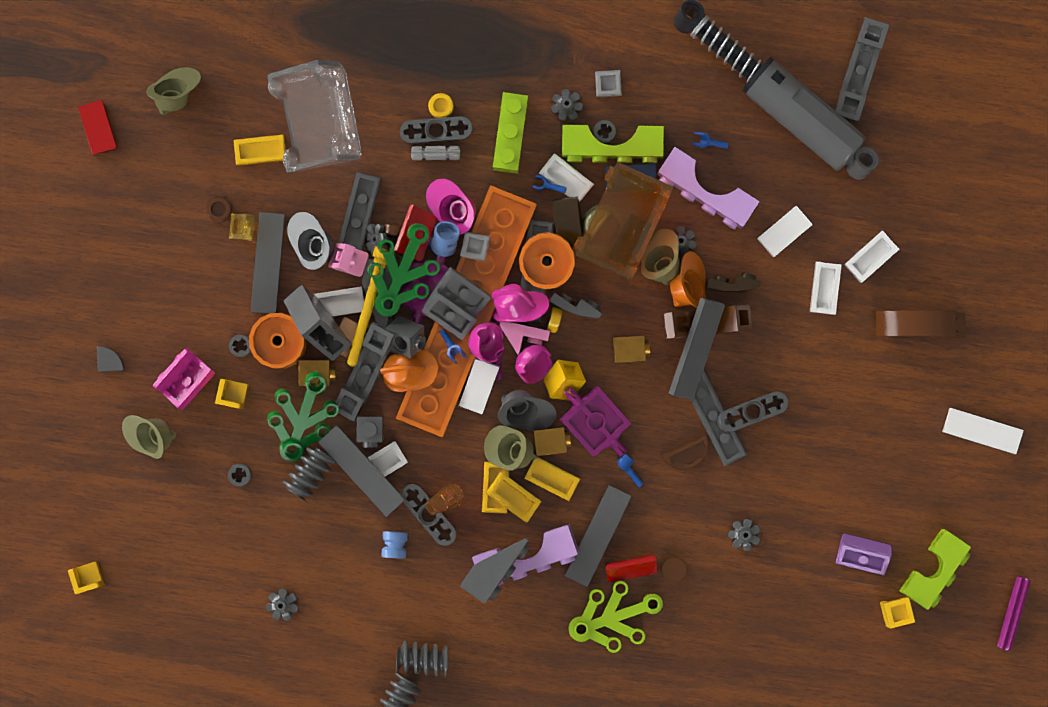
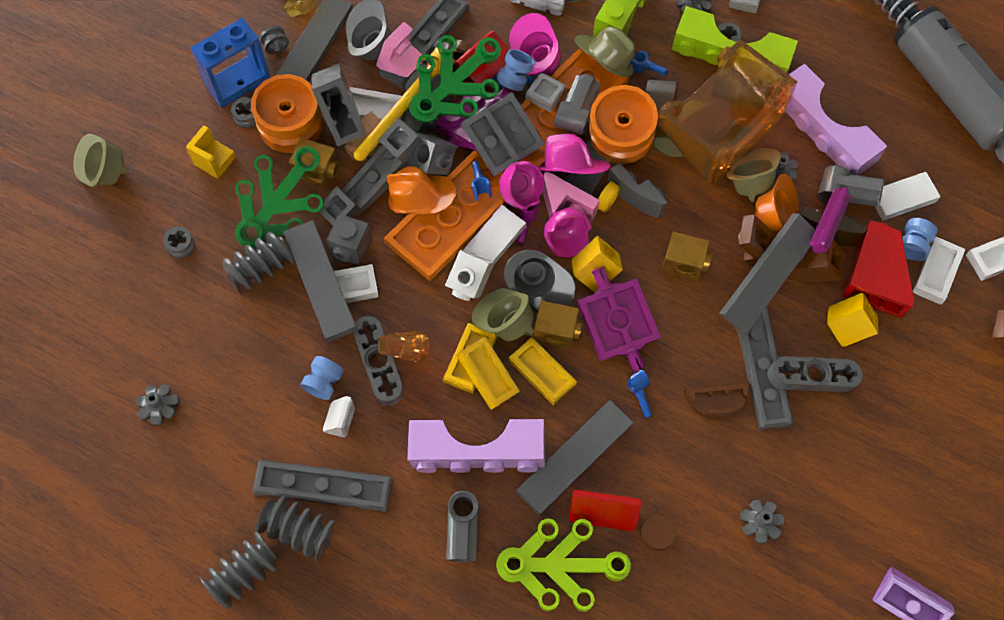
camera: 15 degrees right, 20 degrees down
(108, 360) = (96, 81): dark grey tile -> none
(184, 378) = (165, 119): dark pink bracket -> none
(210, 321) = (250, 70): none -> blue window
(235, 272) = (274, 39): none -> dark grey bush
(417, 567) = (339, 417): none -> white slope
(426, 620) = (322, 485): none -> dark grey tile
(472, 426) = (469, 275): none -> white brick
(487, 574) = (425, 439): dark grey slope -> none
(505, 259) = (574, 113): none -> dark grey piece
(511, 189) = (611, 49): none -> olive piece
(537, 619) = (462, 530): none -> dark grey piece
(563, 174) = (667, 57): white tile -> none
(706, 140) = (838, 76): blue hand -> none
(730, 289) = (830, 220): none -> magenta axle
(732, 245) = (861, 188): none -> dark grey piece
(769, 356) = (852, 320): none -> yellow panel
(778, 307) = (881, 270): none -> red slope
(805, 265) = (917, 237): none -> medium blue wheel

